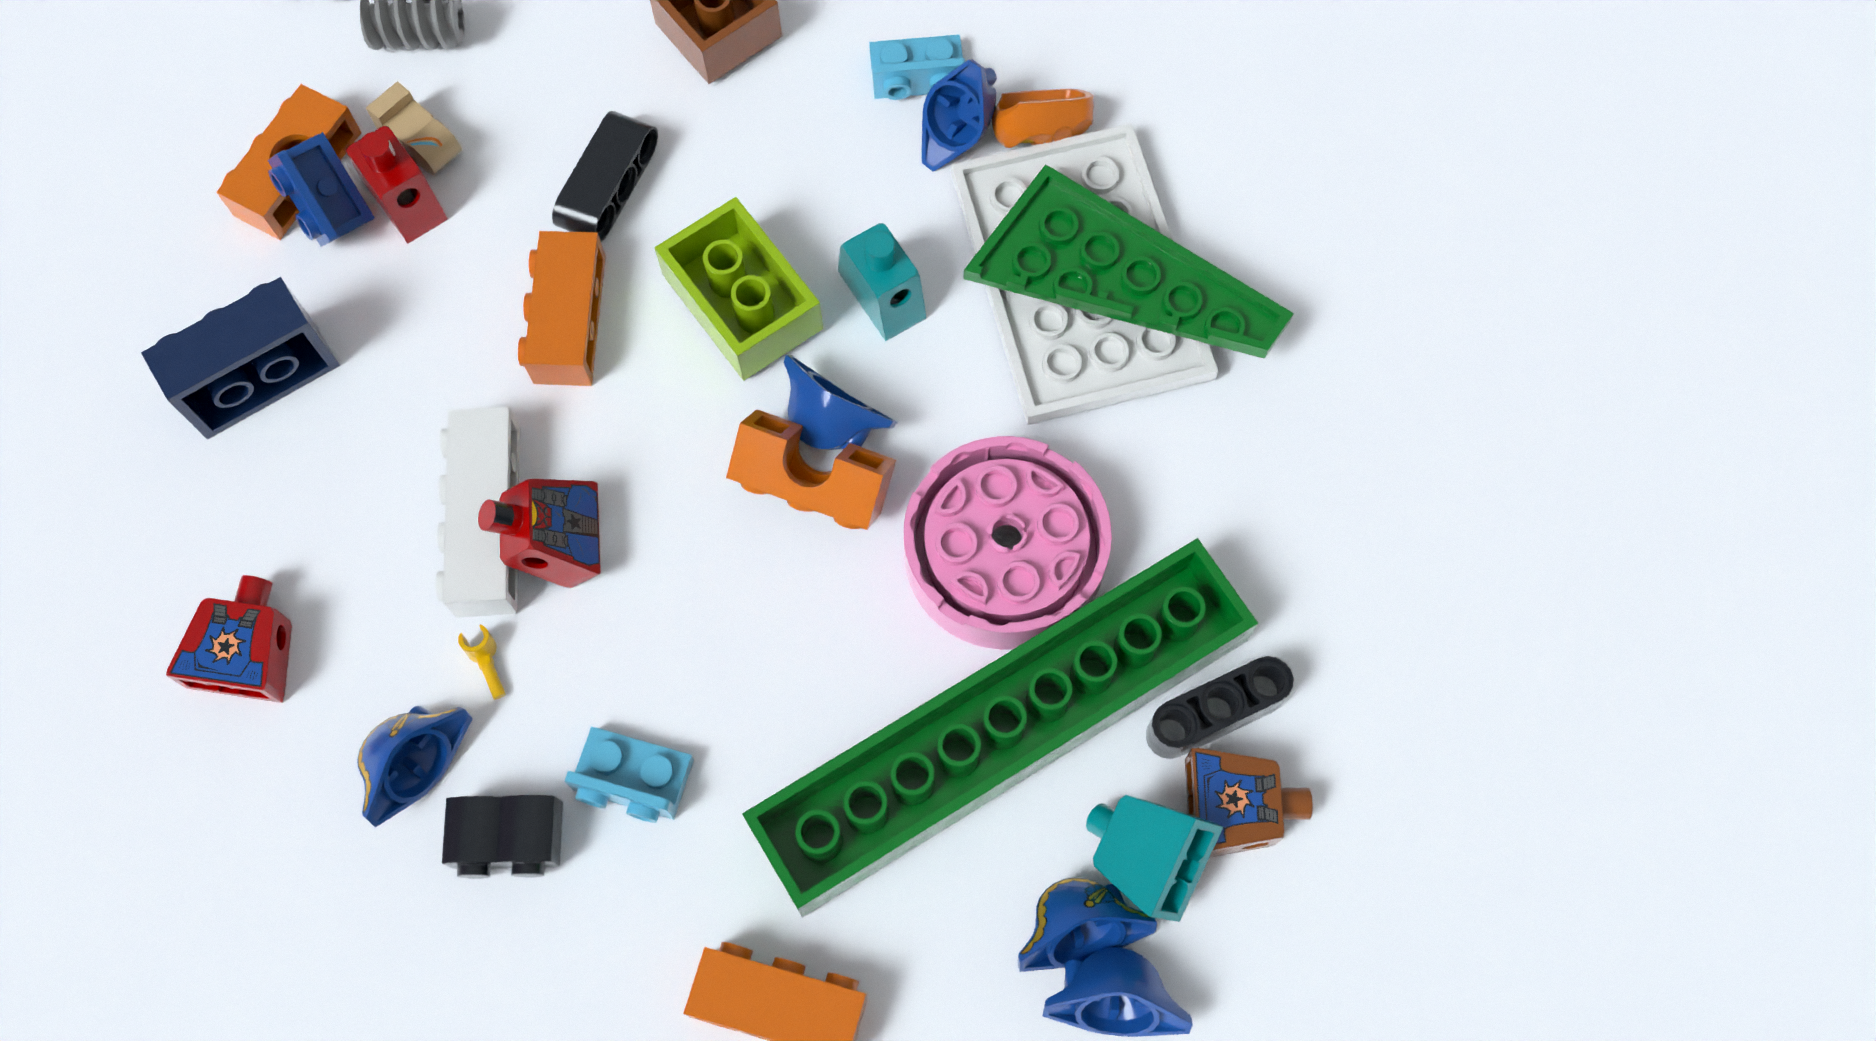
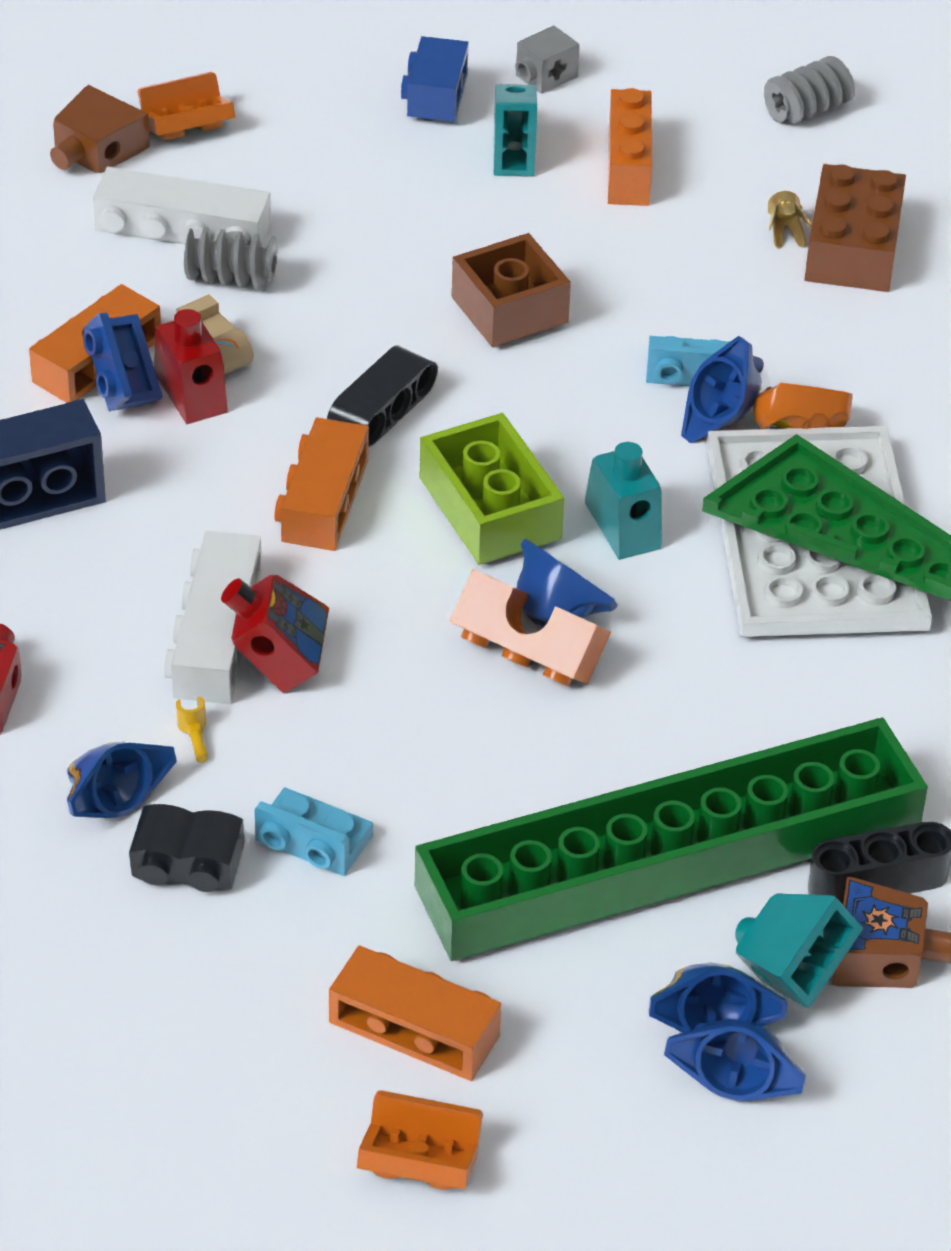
camera: 10 degrees right, 25 degrees down
(985, 589) = (662, 730): bright pink brick -> none

